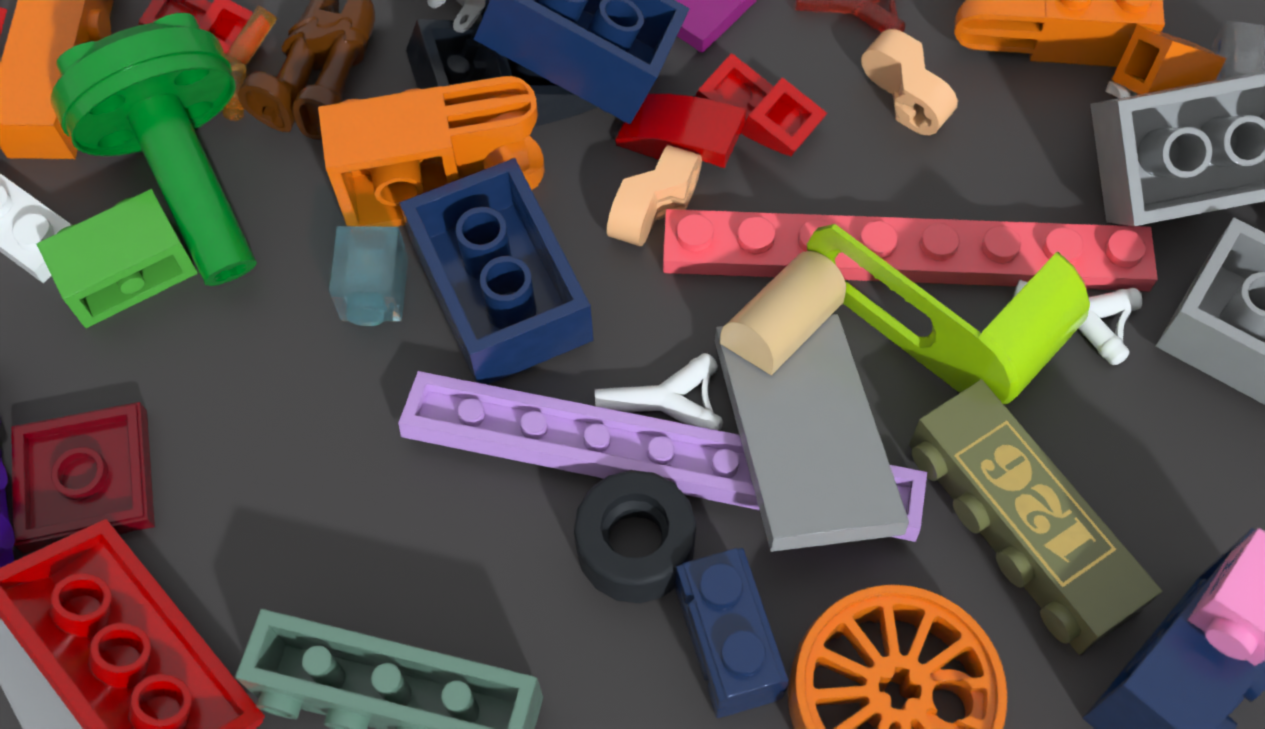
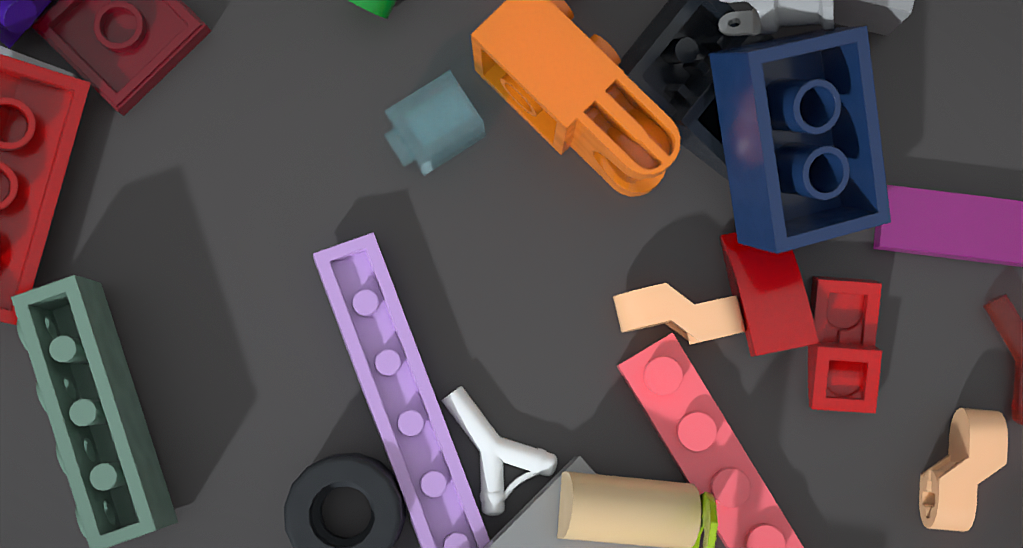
camera: 55 degrees right, 20 degrees up
(498, 272) = (501, 232): dark blue brick -> none

